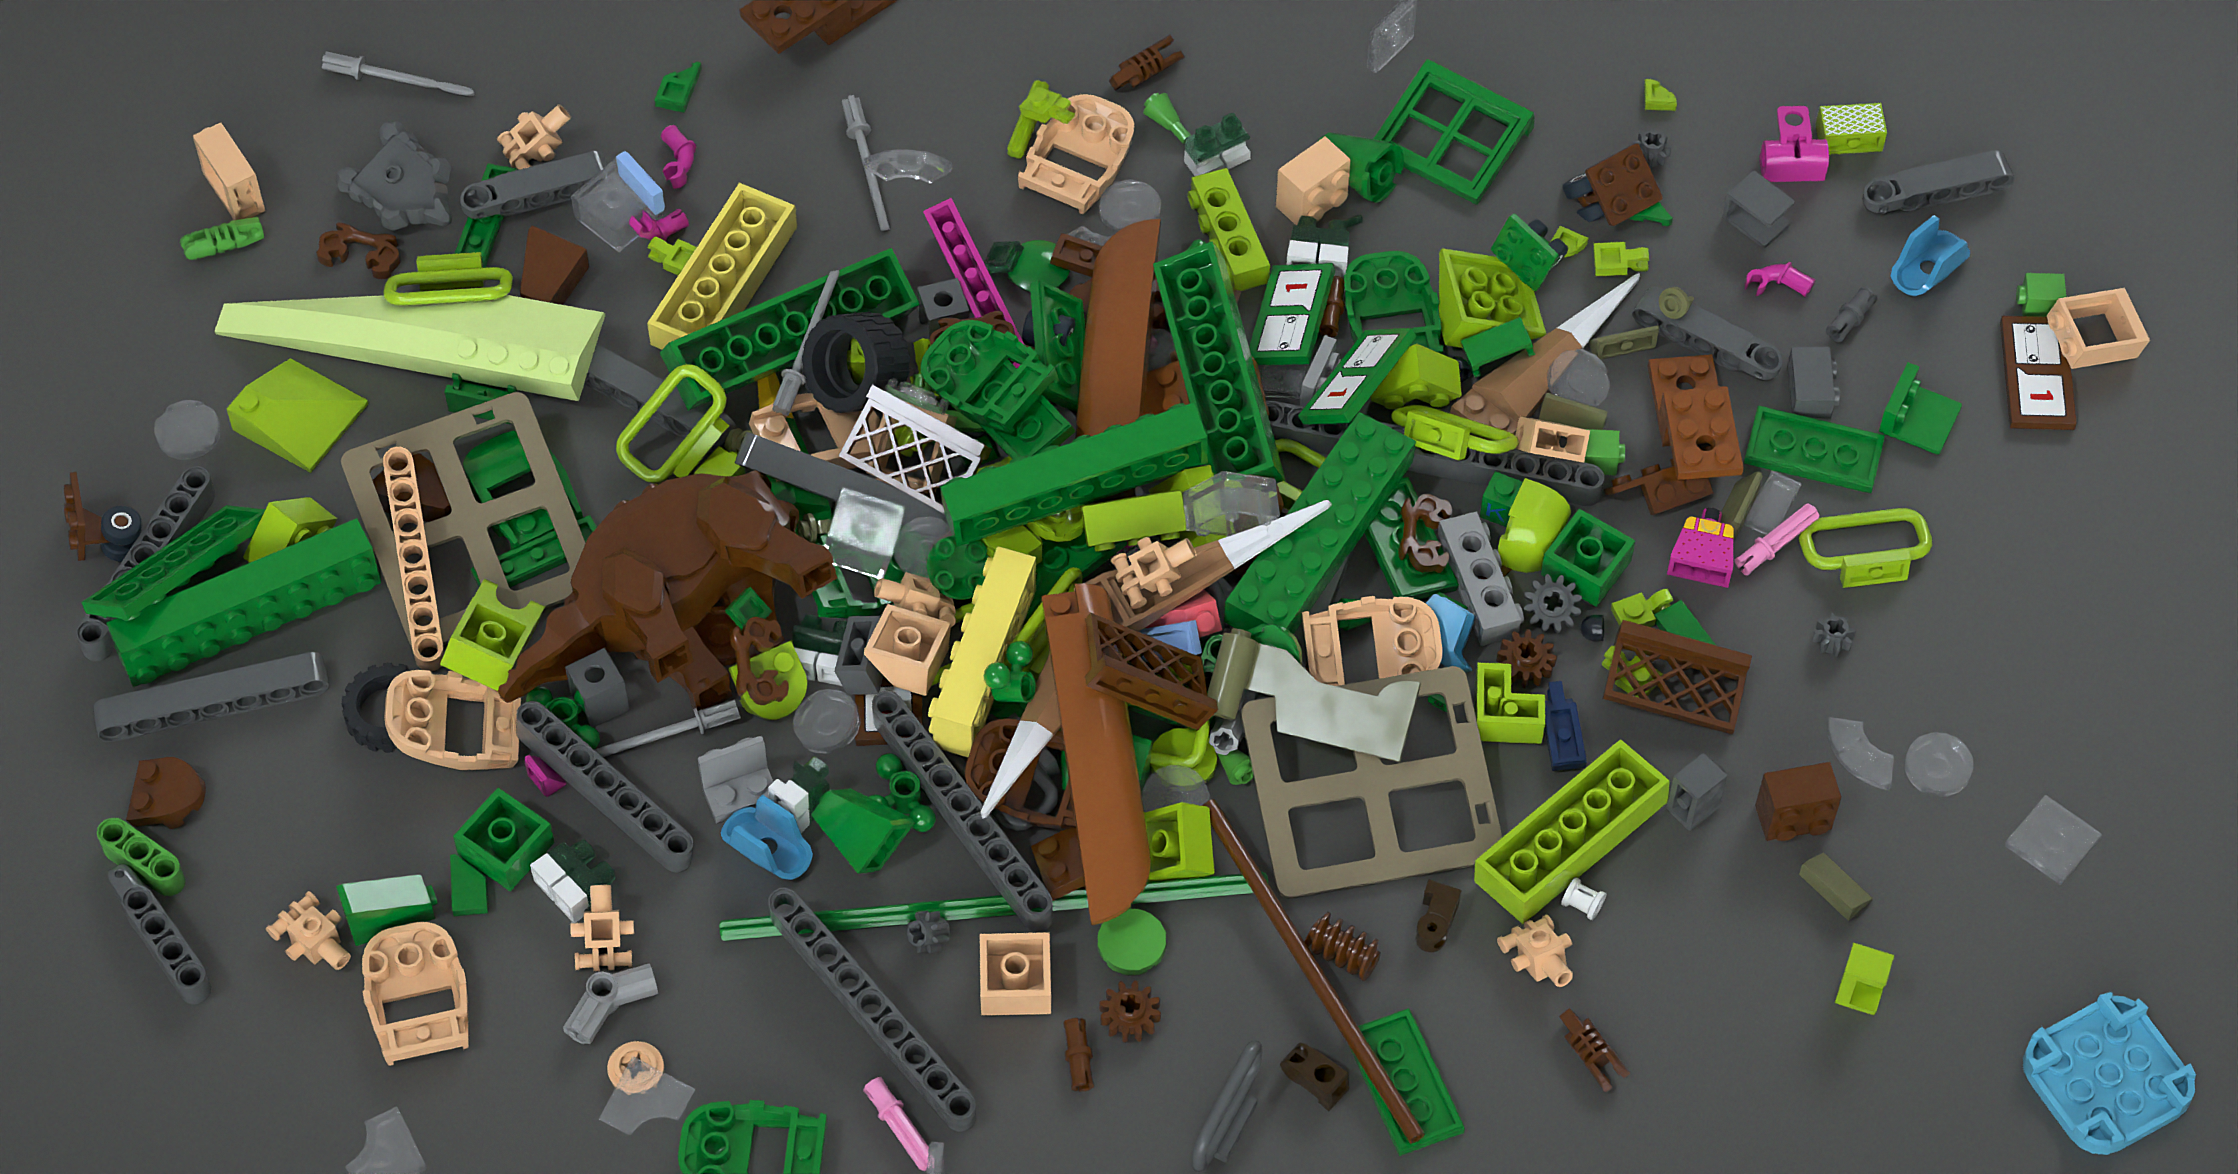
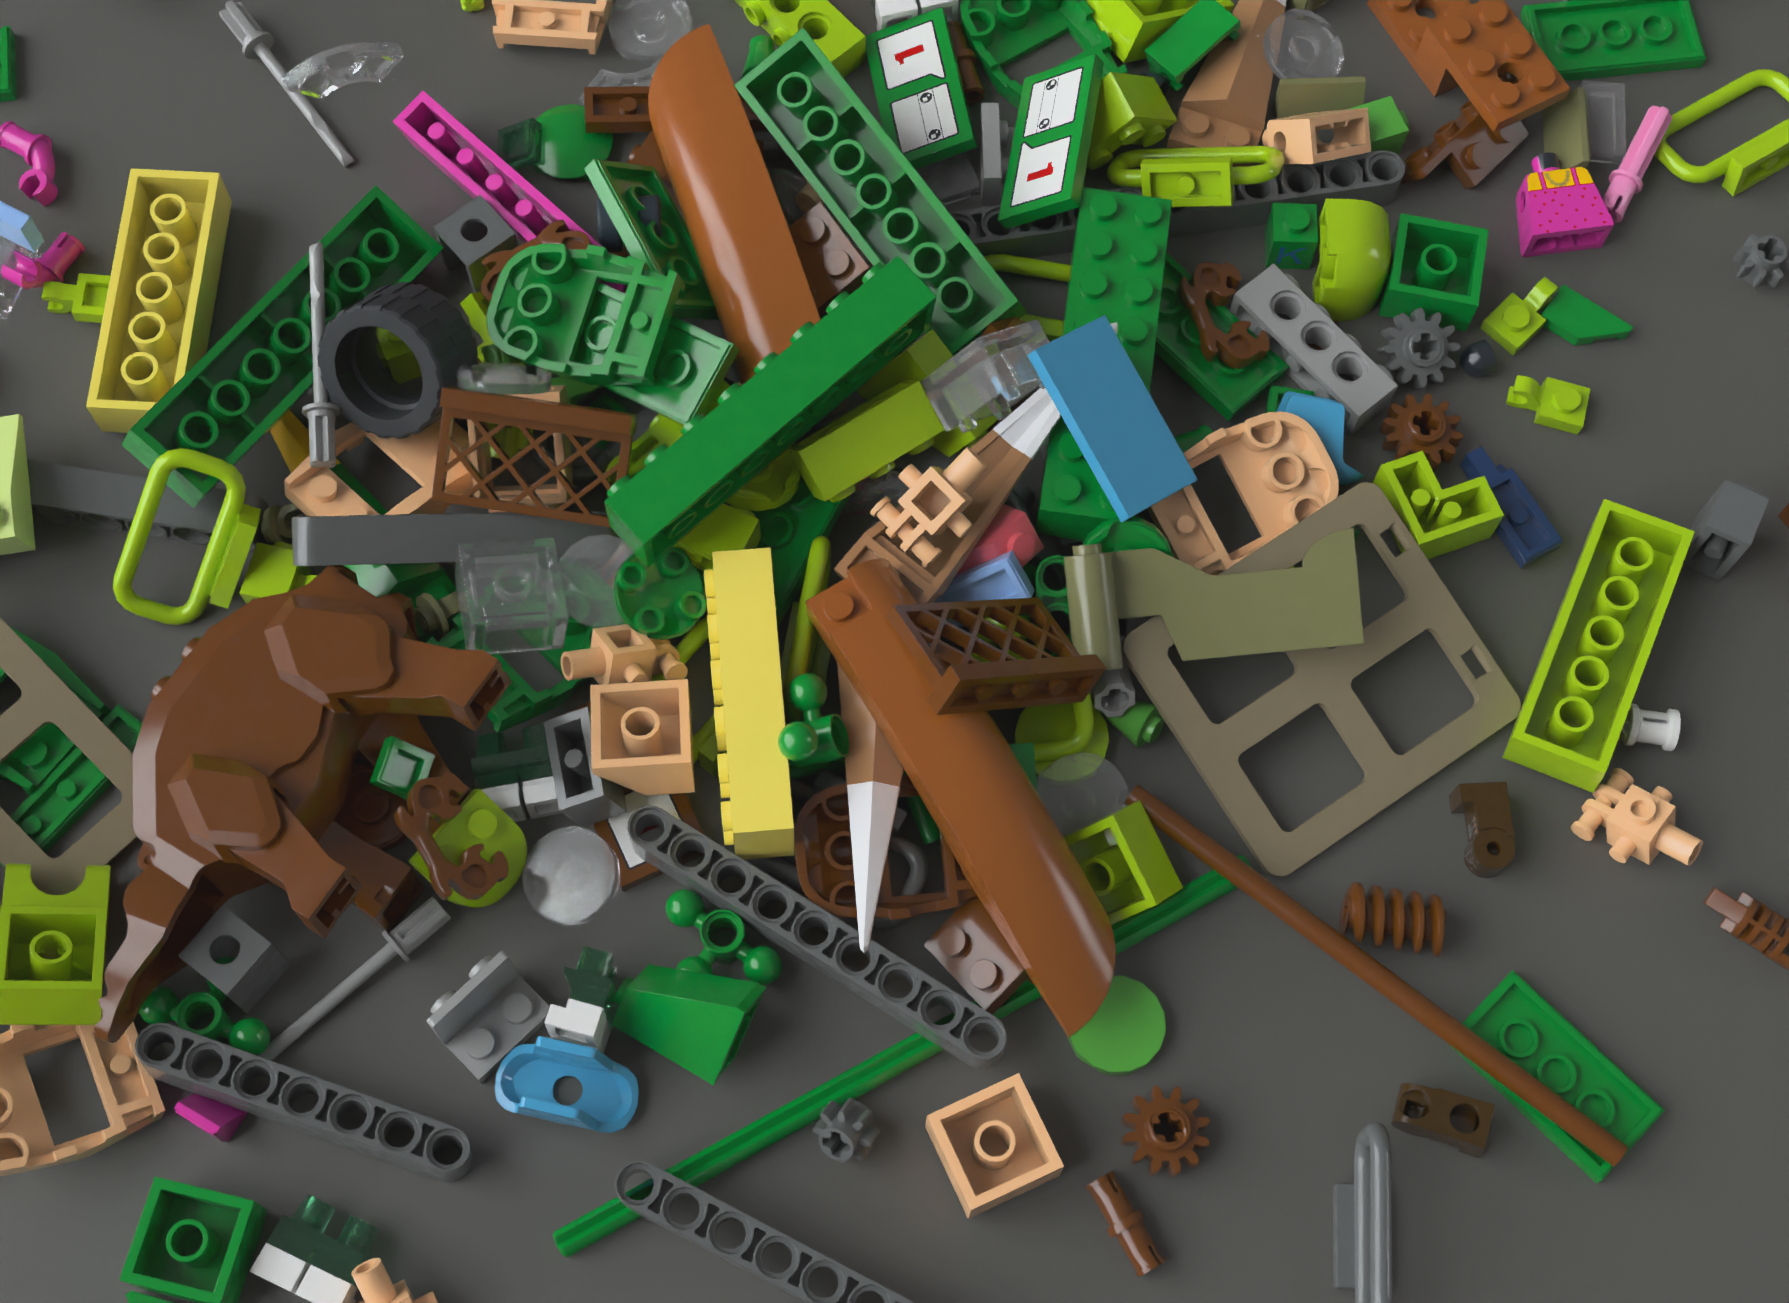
camera: 25 degrees left, 10 degrees up
(1296, 558) = (1112, 417): none -> dark azure tile
(1689, 654) = (1613, 350): reddish brown fence -> none

